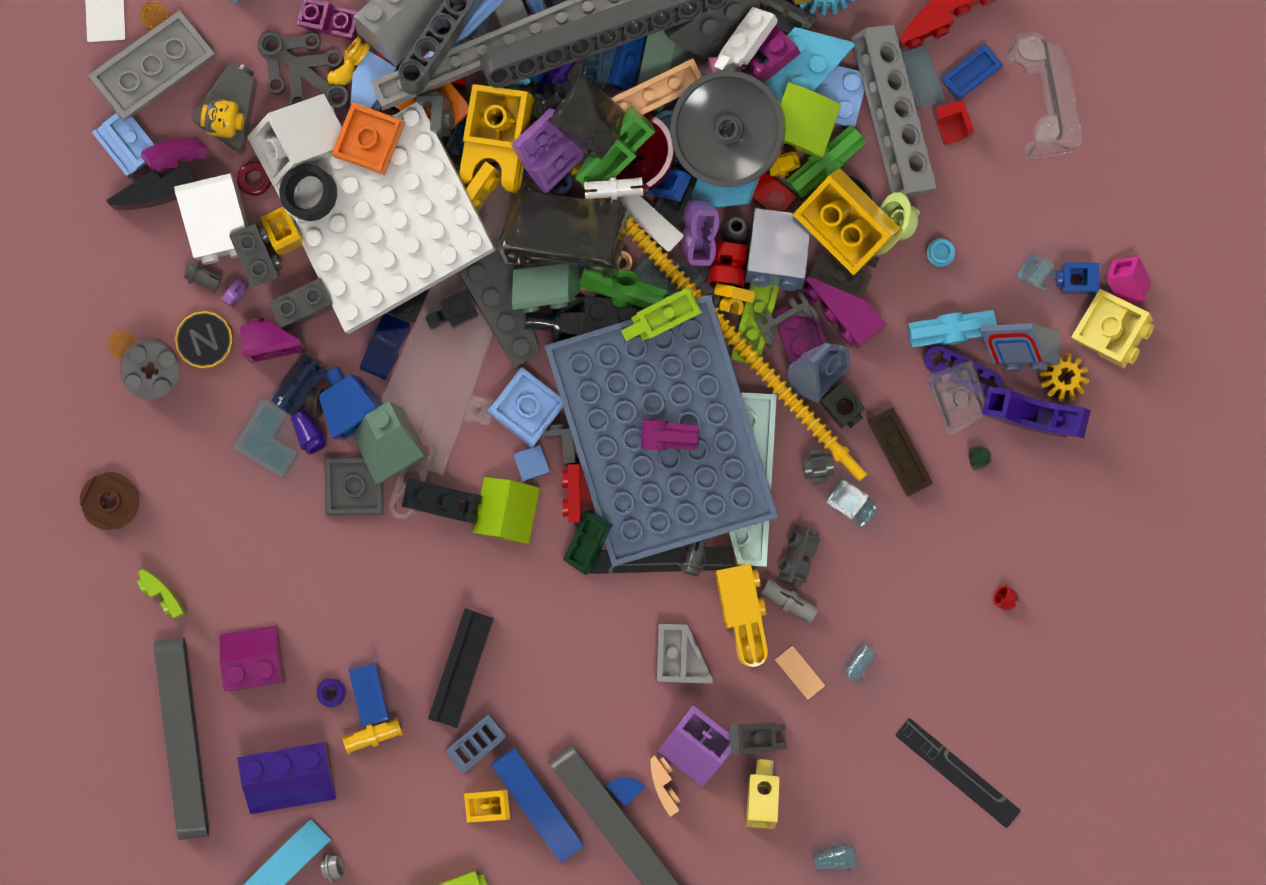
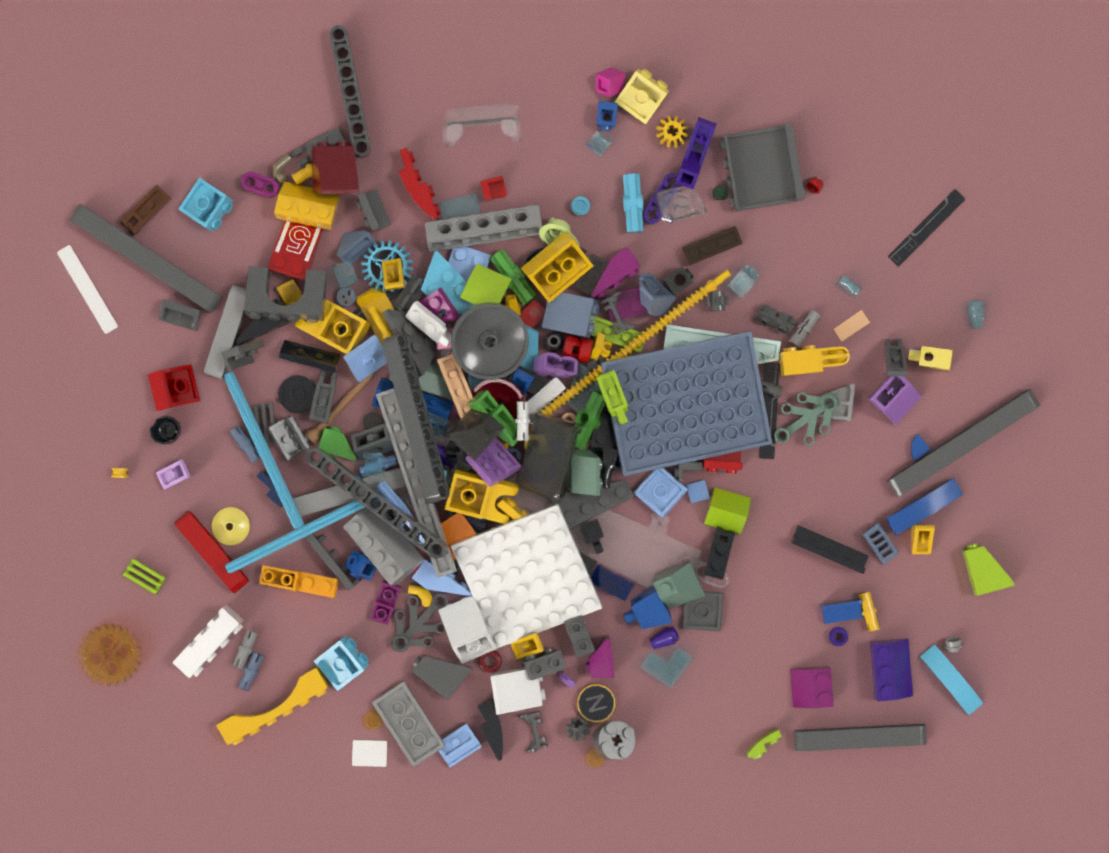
camera: 80 degrees left, 5 degrees up
(104, 485) = (703, 783): reddish brown plate -> none
(137, 256) = (529, 717): none -> dark grey piece
(162, 314) = (577, 729): none -> dark grey gear
(167, 153) = (470, 719): magenta slope -> none
(202, 277) = (554, 700): dark grey pin -> none
(222, 118) = (451, 679): yellow head -> none
(288, 187) = (499, 638): black tyre -> none
(295, 388) = (632, 642): dark blue hinge -> none
(313, 404) = (645, 633): clear smoke tile -> none
(357, 51) = (411, 585): yellow bush -> none
(368, 138) = (473, 582): orange tile -> none
(441, 112) = (462, 531): dark grey bracket -> none
(587, 542) = (754, 458): dark green plate -> none
(658, 619) = (809, 416): none -> sand green plant
(660, 774) = (913, 423): light nougat slope -> none
(663, 435) = (691, 402): magenta piece -> none
(971, 72) = (459, 173): blue tile -> none
(1022, 346) = (651, 157): sand blue slope -> none
(1023, 516) = (762, 168): none -> dark grey panel

